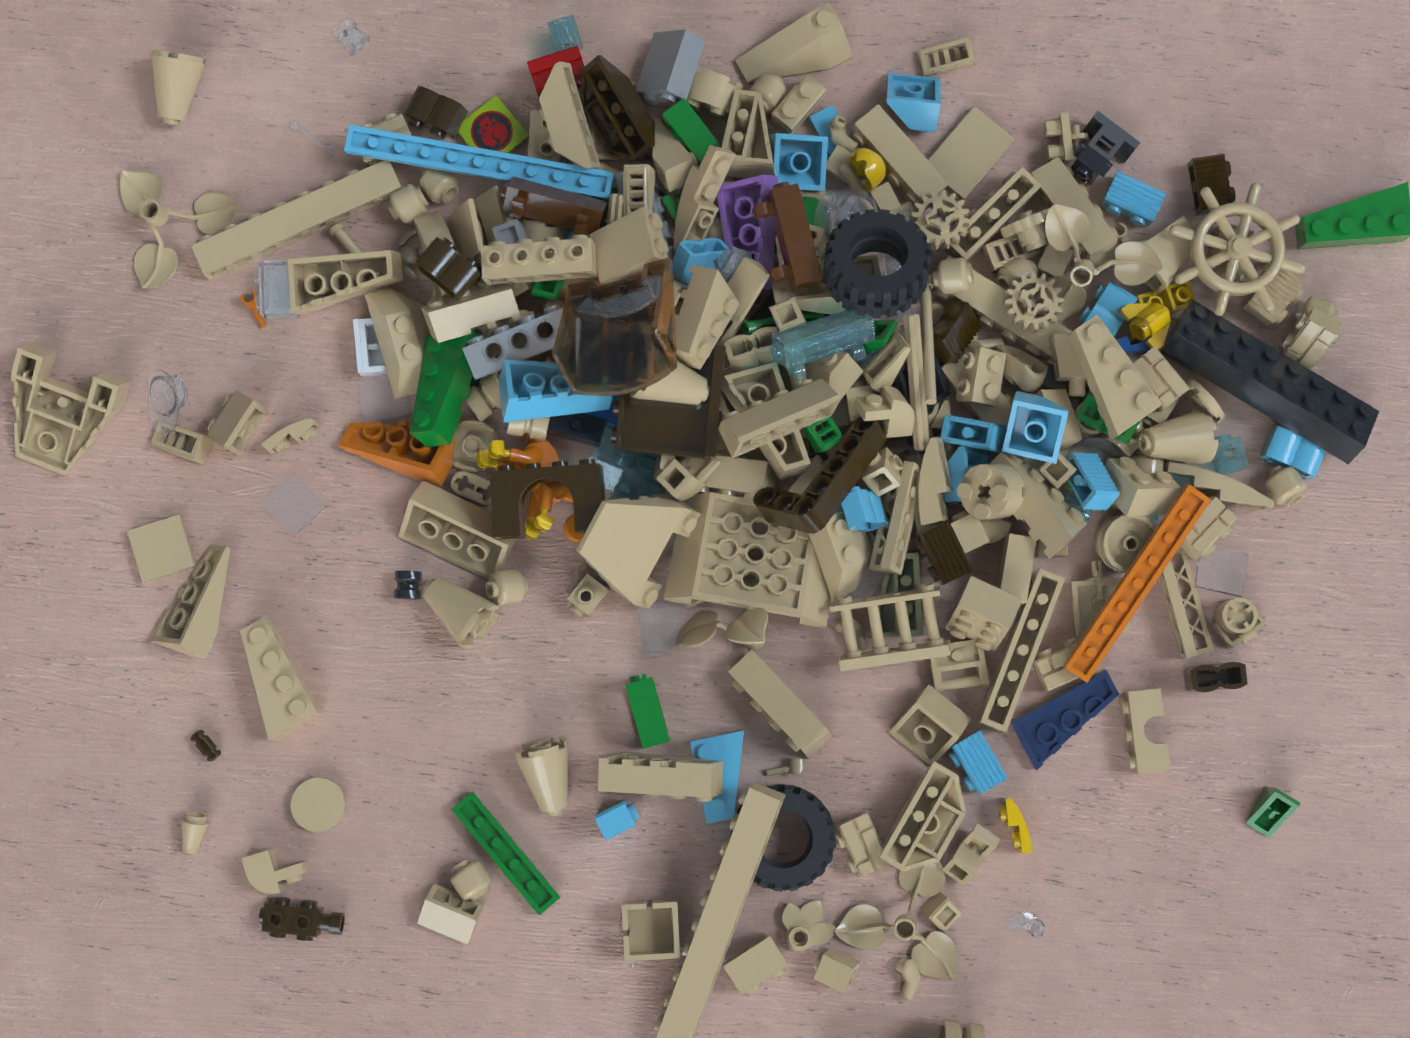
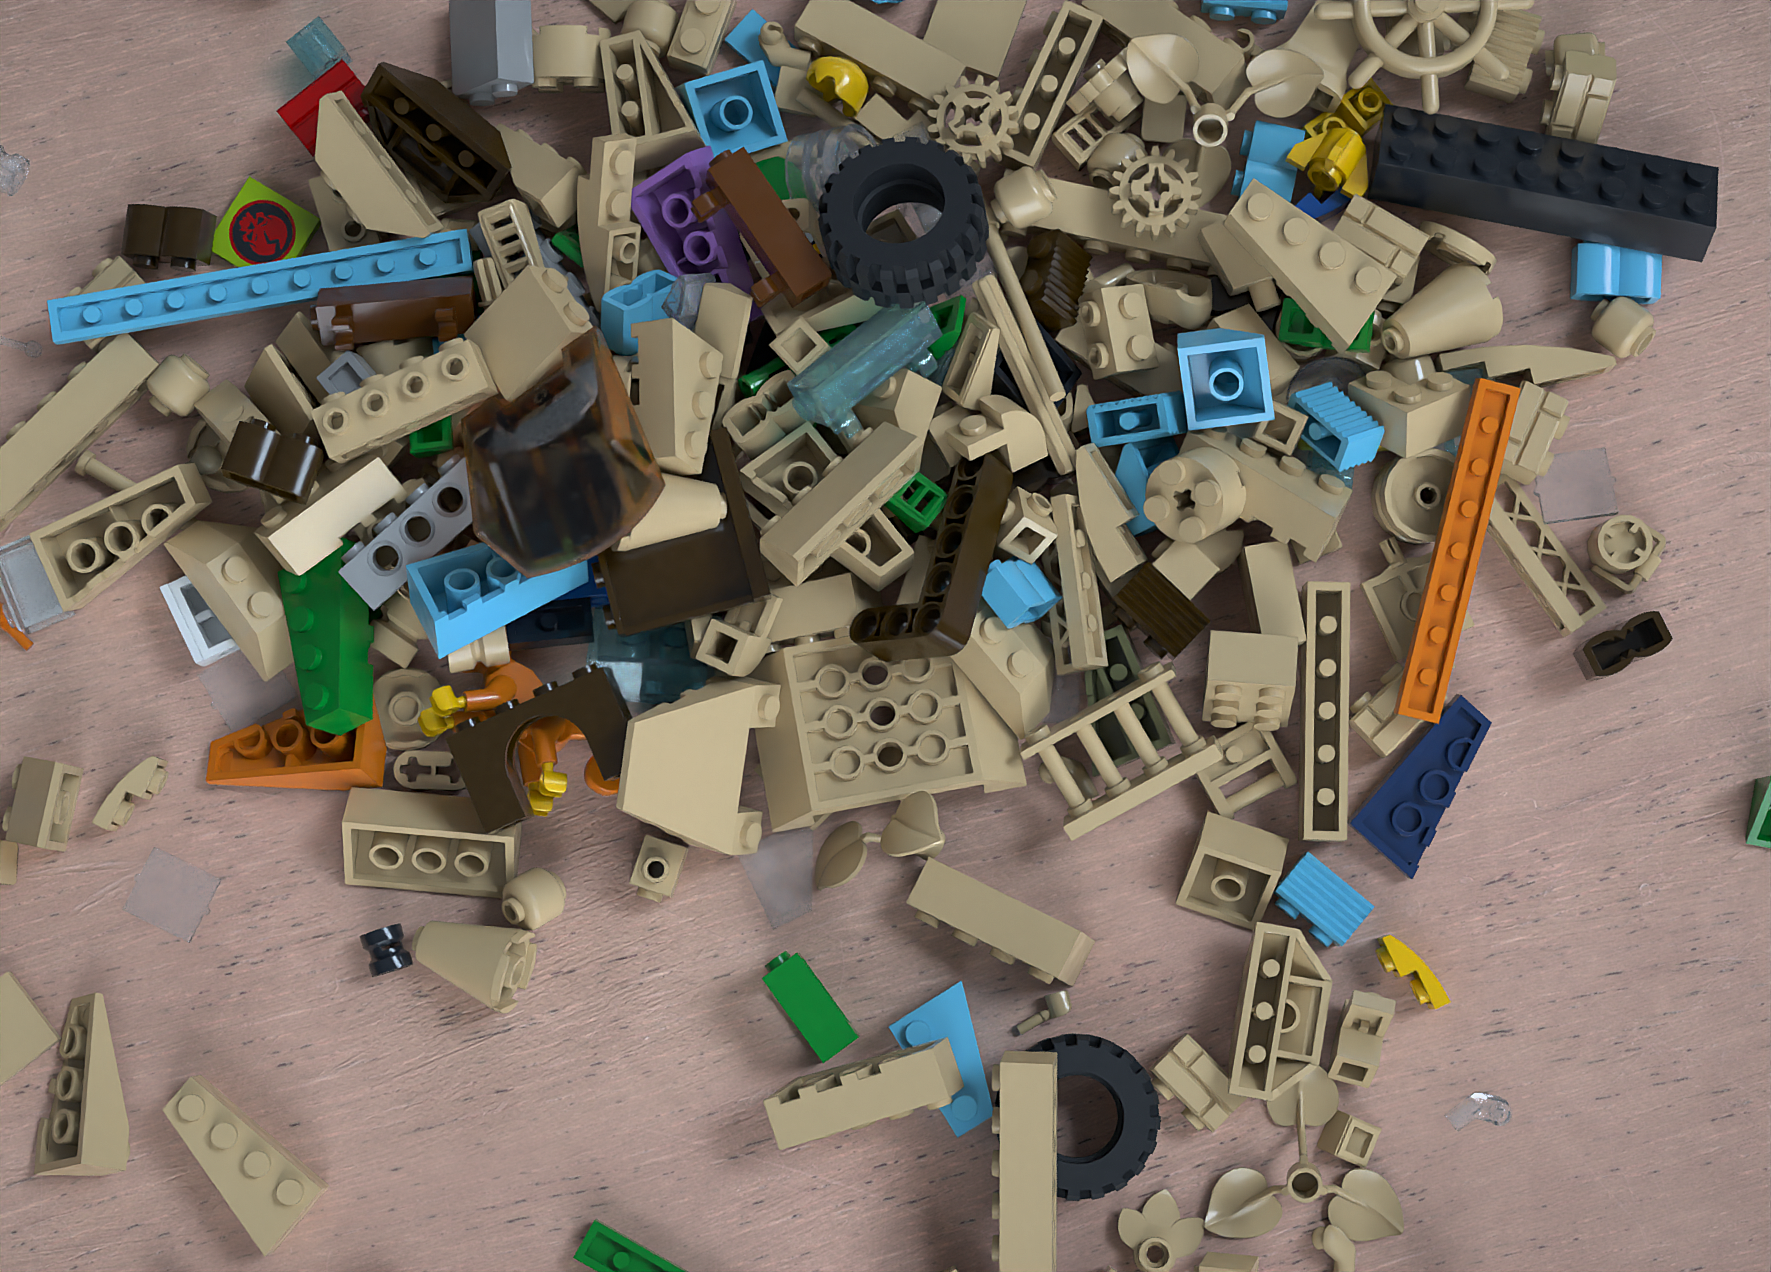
camera: 15 degrees left, 0 degrees up
(439, 185) = (213, 341): tan head -> none
(546, 772) = (693, 1151): tan cone -> none
(617, 819) = (823, 1180): medium azure brick -> none
(690, 129) = (555, 123): green window -> none
(1143, 754) = (1561, 798): tan arch -> none
(1232, 464) = (1525, 327): clear light blue brick -> none

